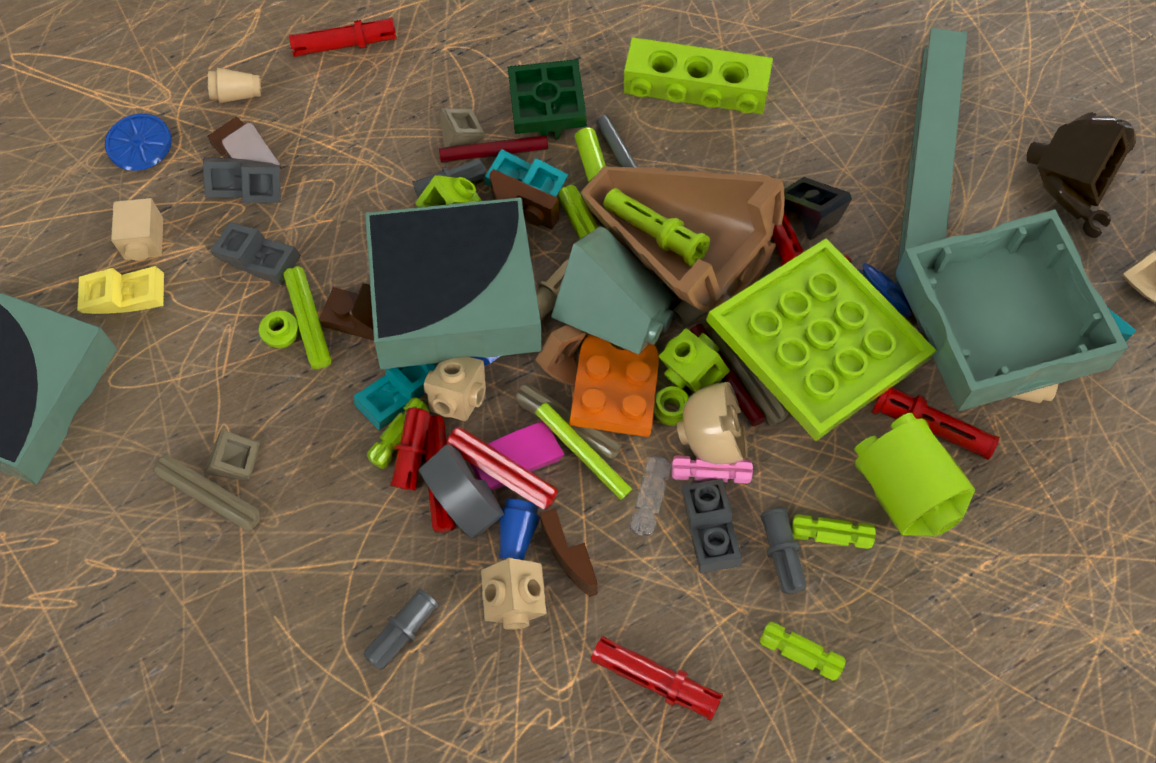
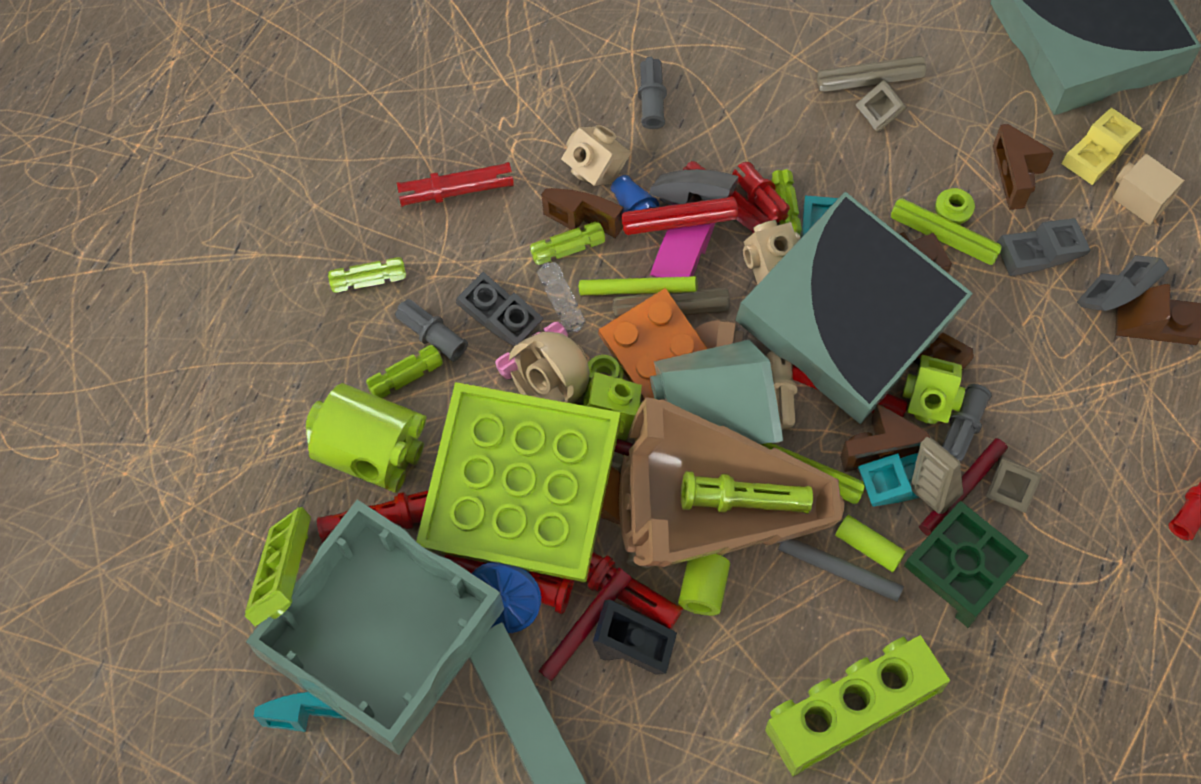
camera: 140 degrees right, 0 degrees up
(198, 324) = (1017, 162): none -> reddish brown slope
(516, 139) = (937, 476): none -> dark tan slope
(604, 541) = (567, 243): none -> lime axle
(836, 236) = (584, 625): none -> dark red bar
(1061, 401) = (278, 567): none -> lime plate

